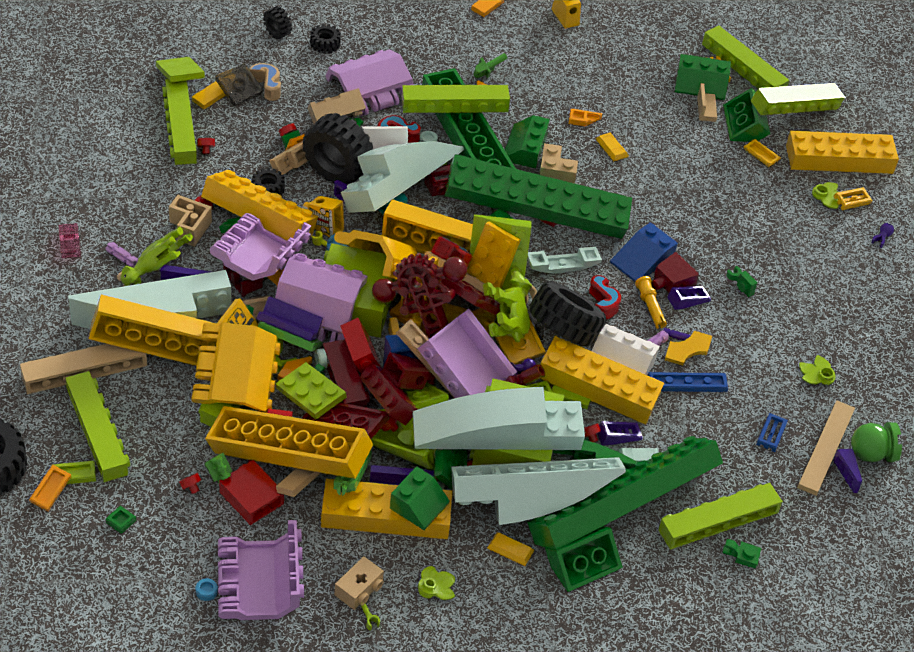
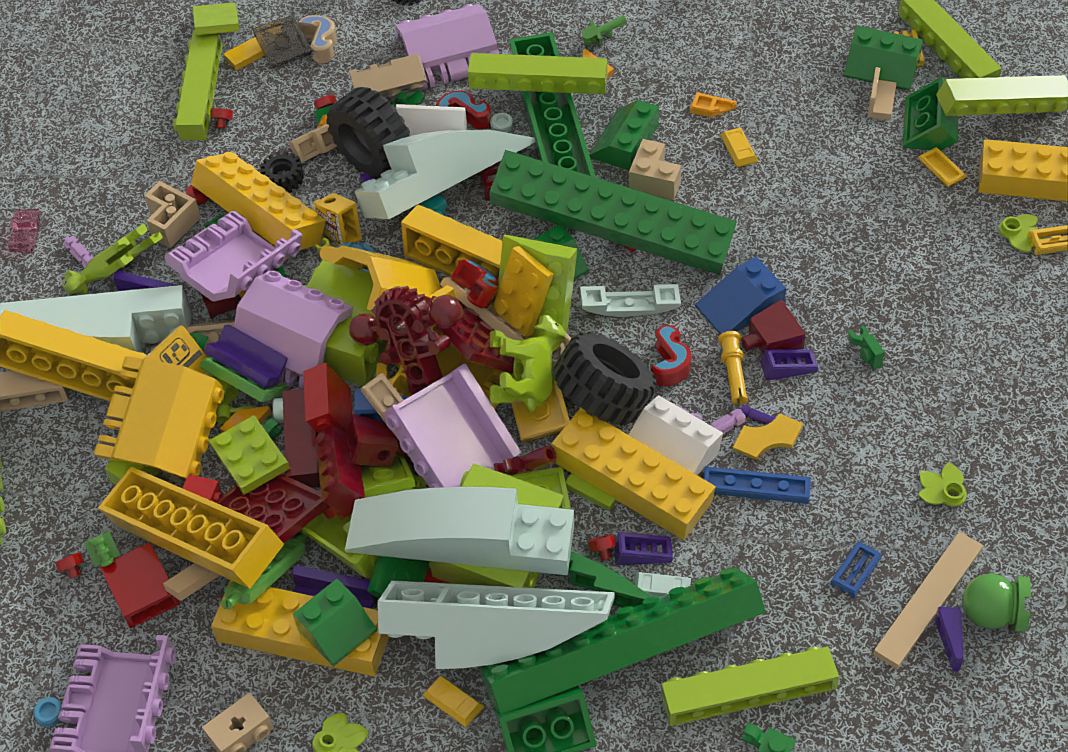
camera: 20 degrees right, 5 degrees up
(526, 364) = (541, 441): dark purple arm -> none

